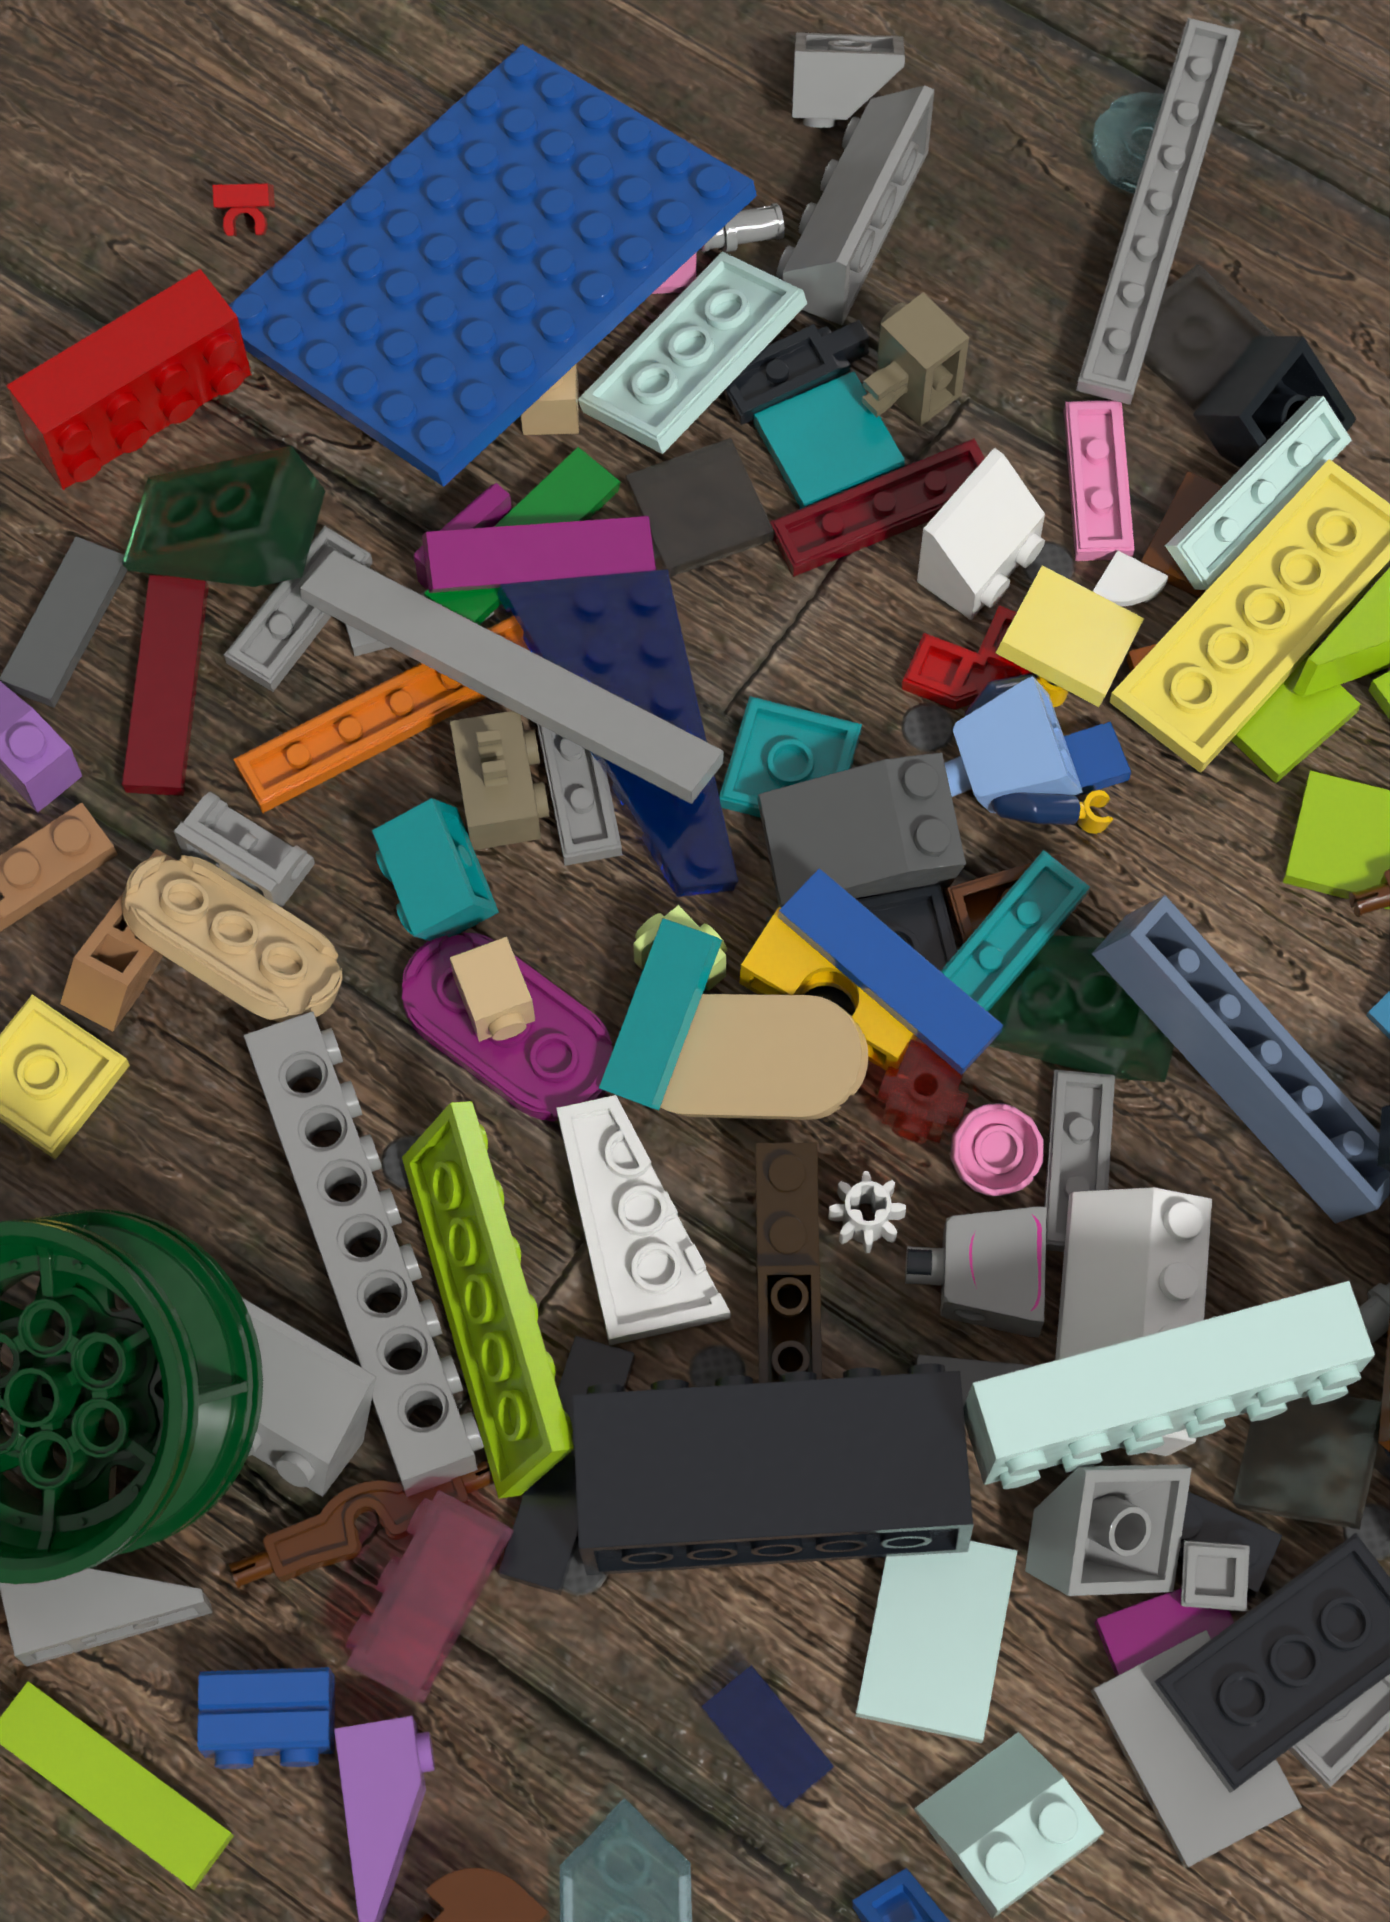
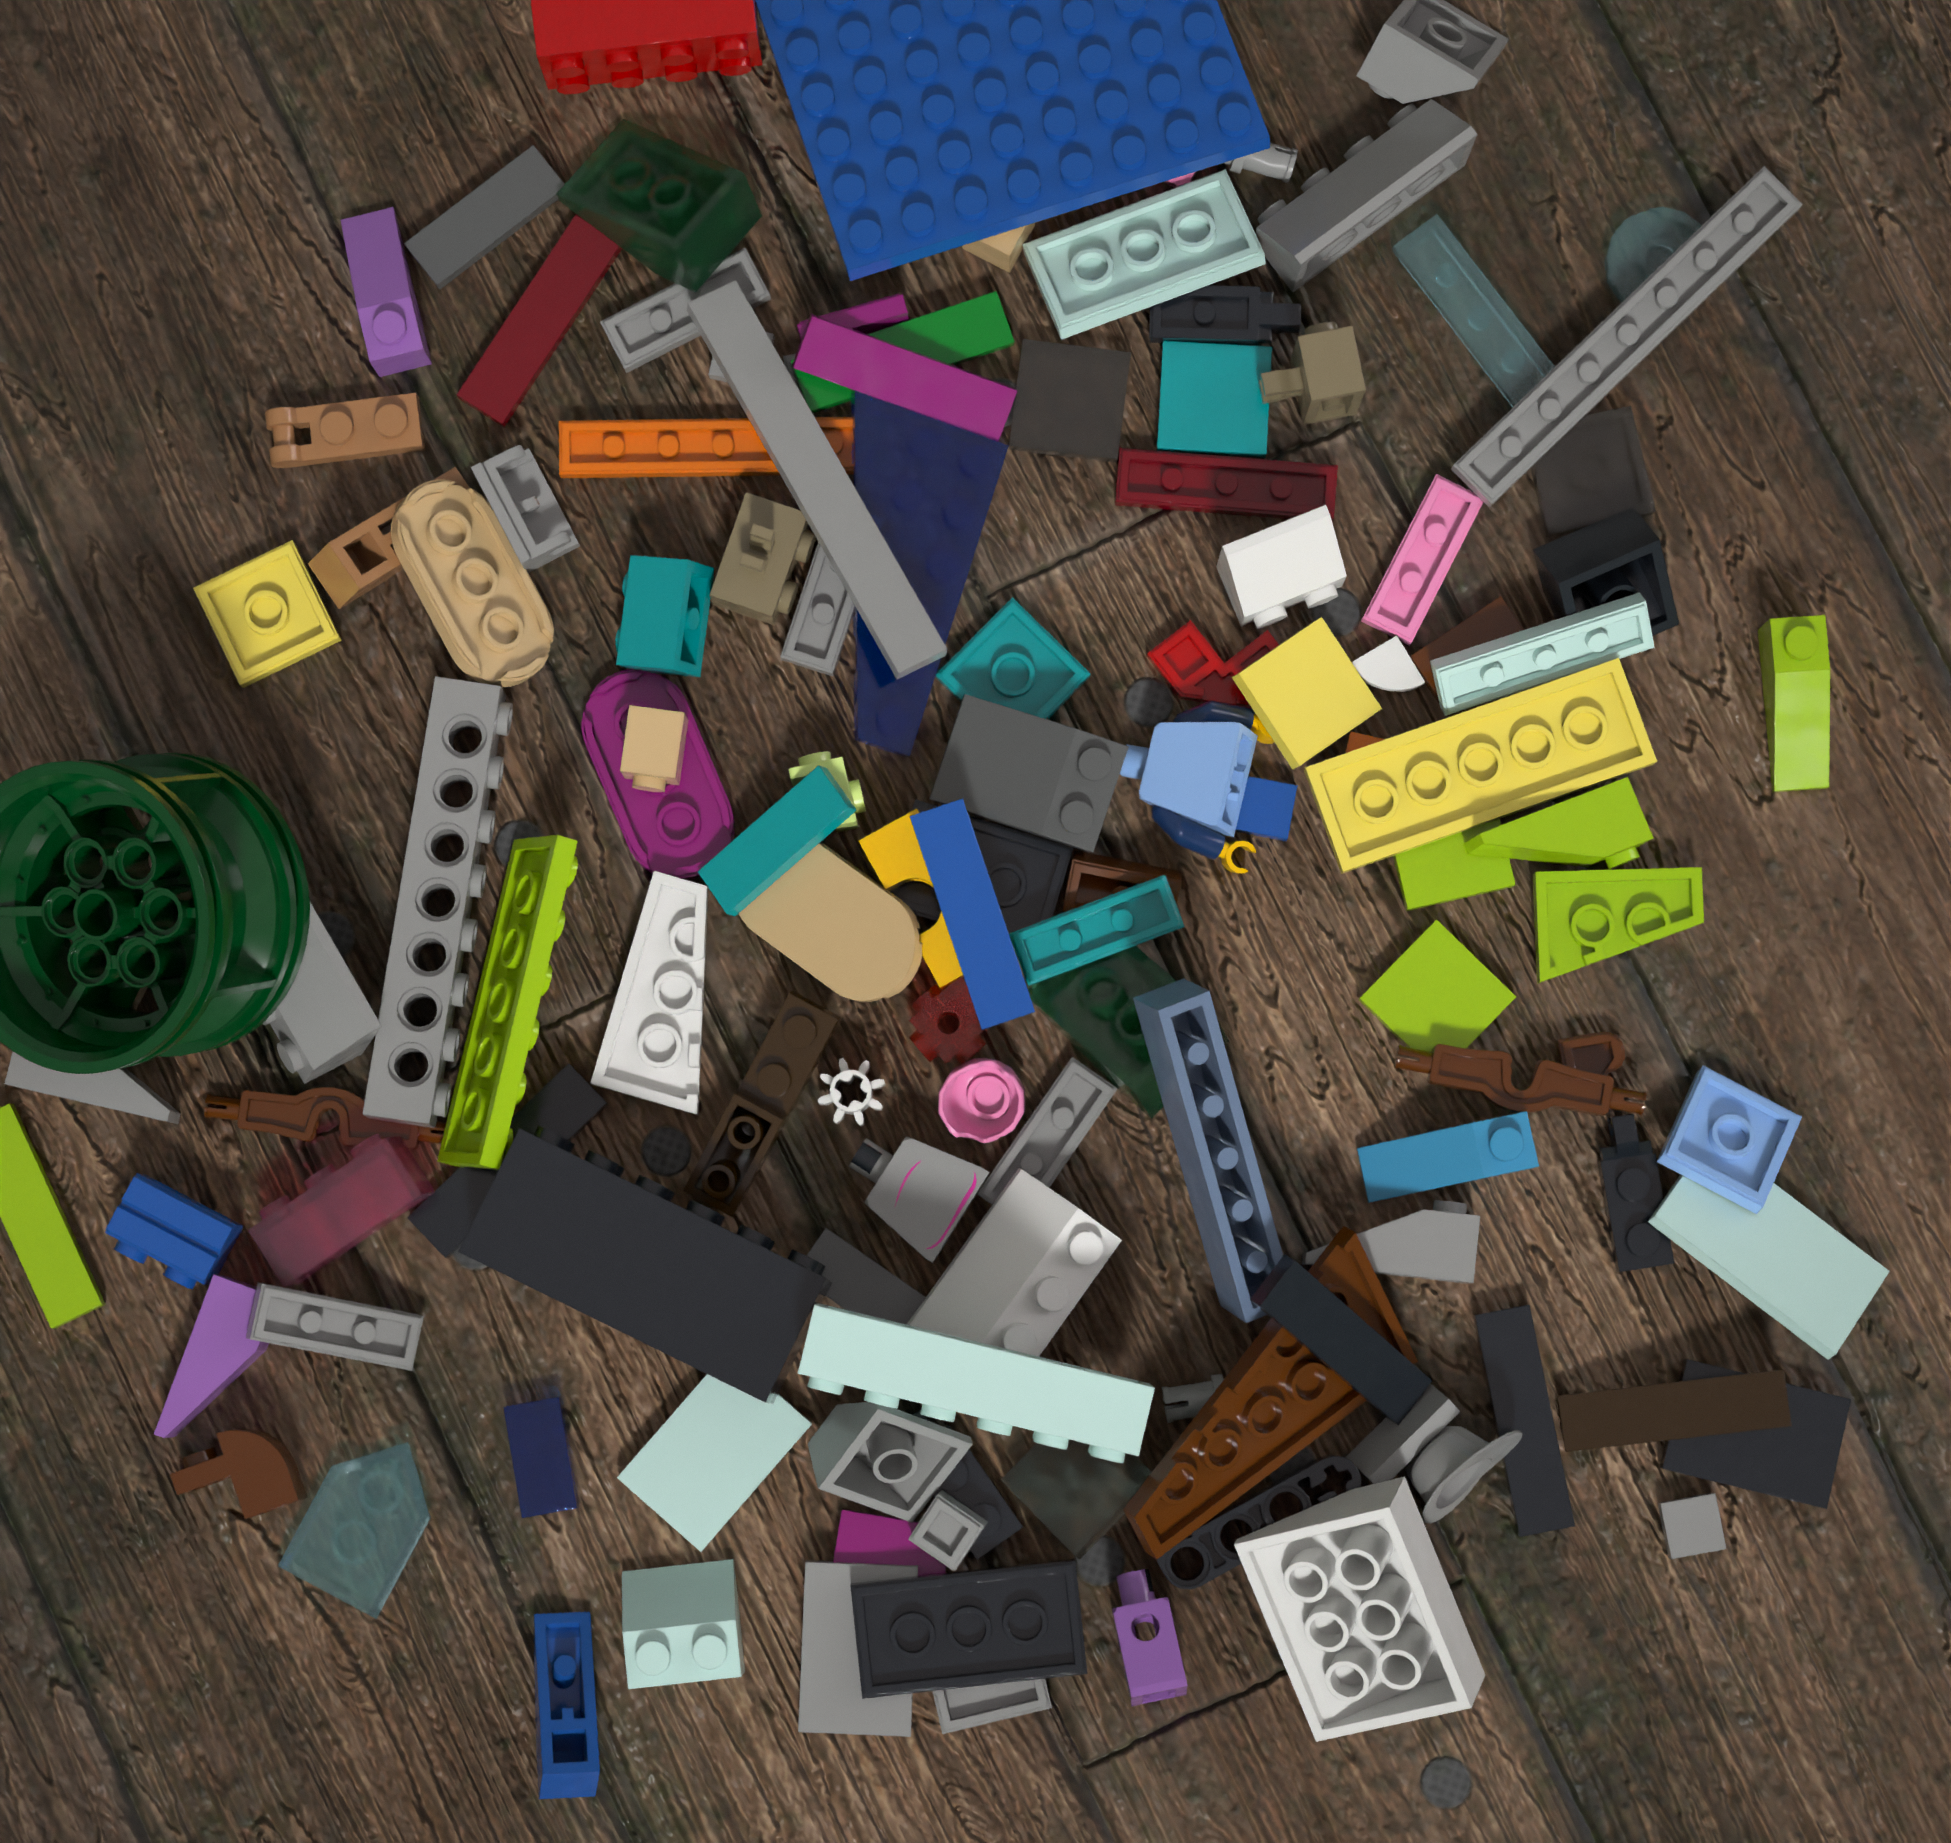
camera: 30 degrees right, 15 degrees up
(486, 1716) = (334, 1326): none -> light grey tile
(1011, 257) = (1473, 309): none -> clear light blue tile

